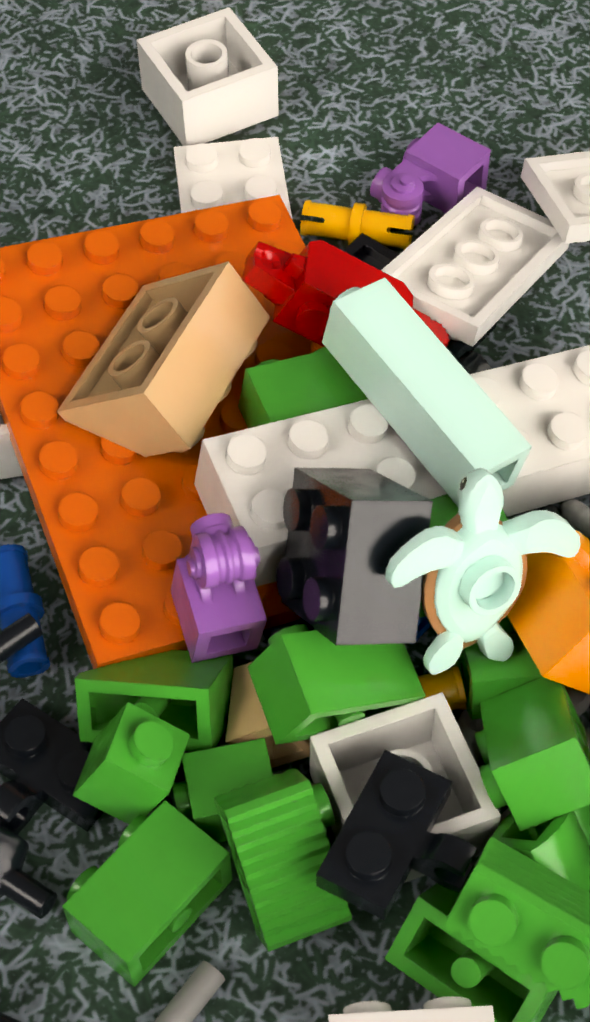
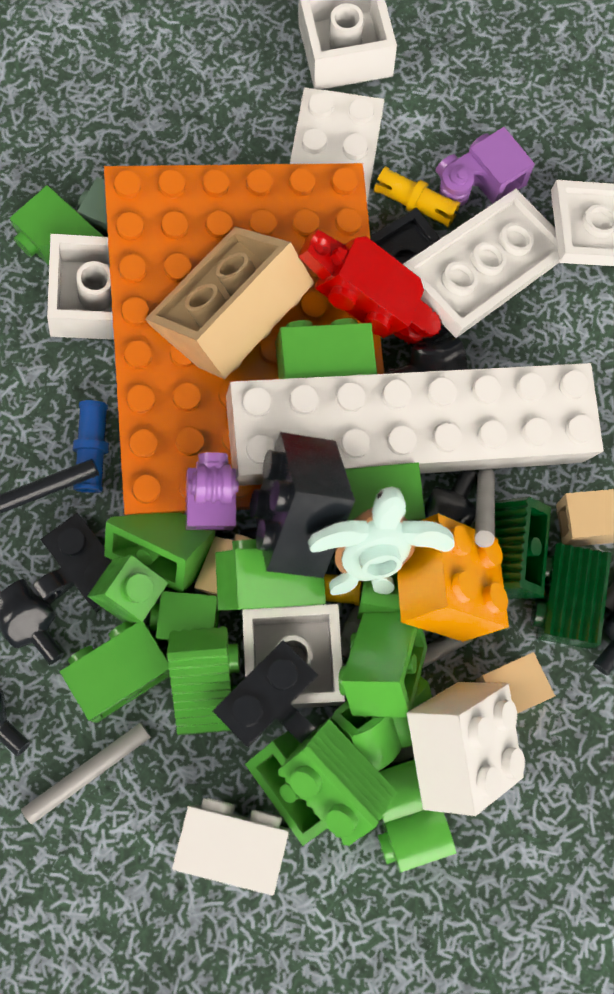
camera: 15 degrees right, 20 degrees up
(421, 388) = (392, 388): light aqua brick -> none

